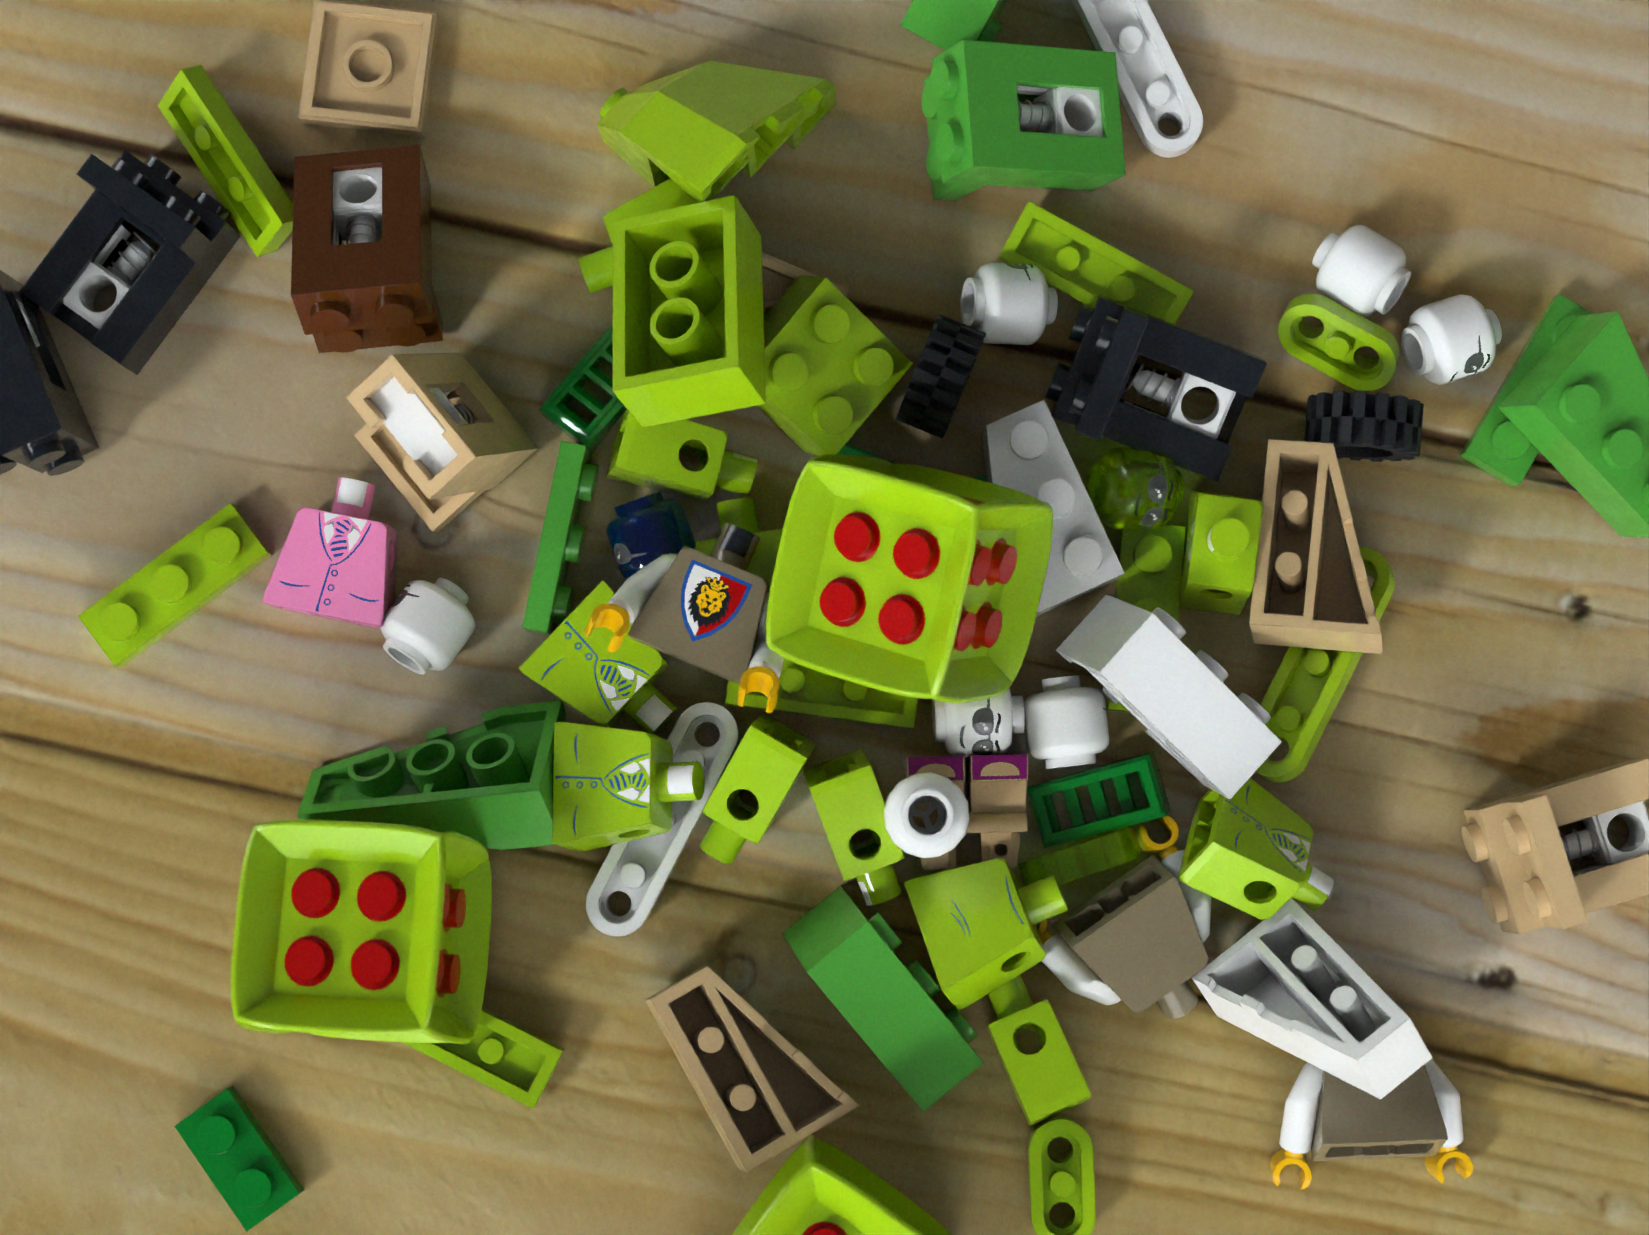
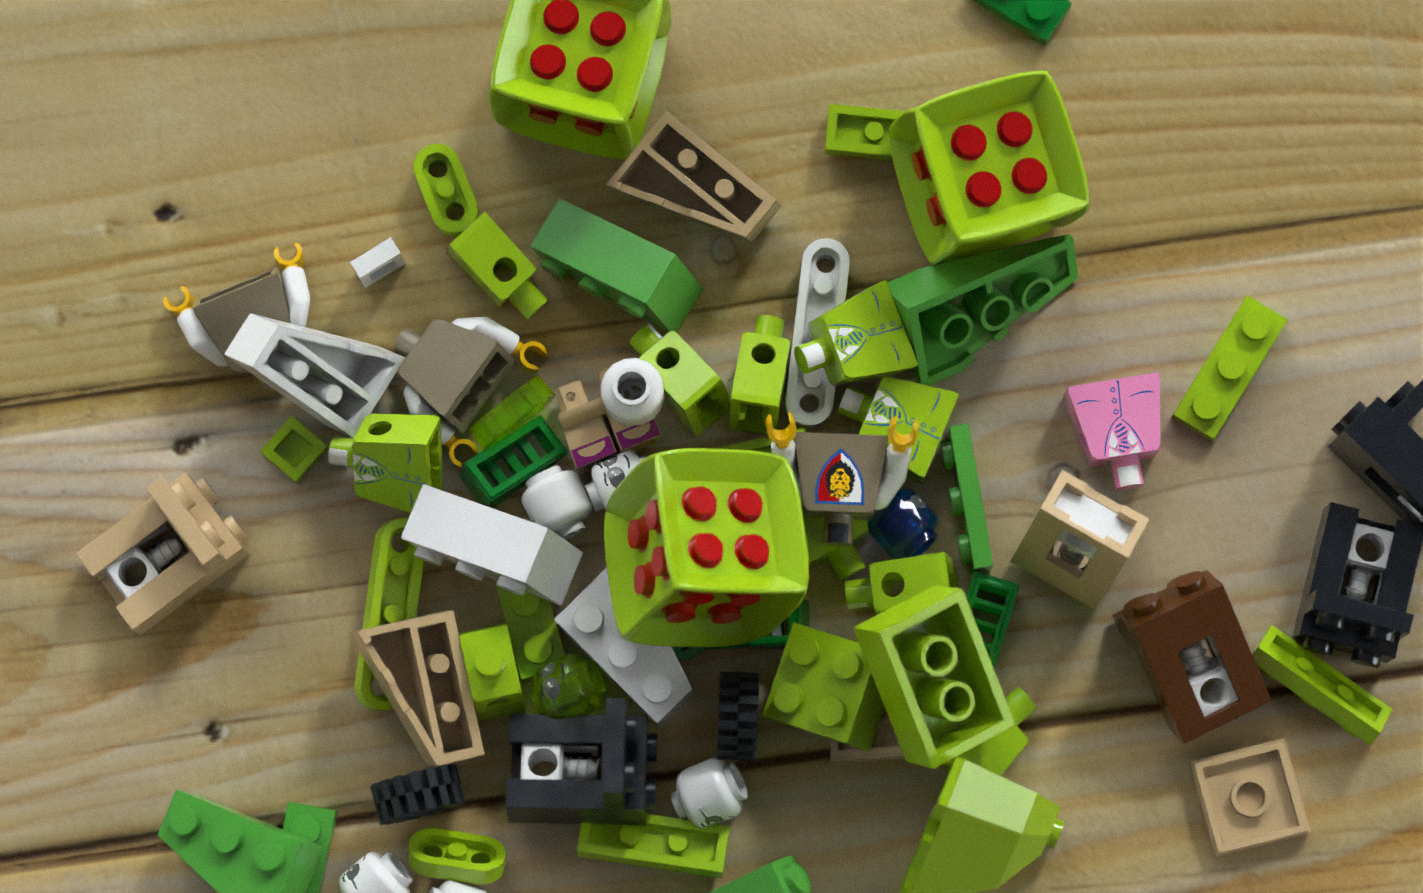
camera: 165 degrees right, 5 degrees down
(427, 625) = (1036, 404): white head -> none
(982, 925) = (565, 337): lime torso -> none
(1182, 1118) = (377, 262): none -> white tile
(1365, 918) = (294, 450): none -> lime tile

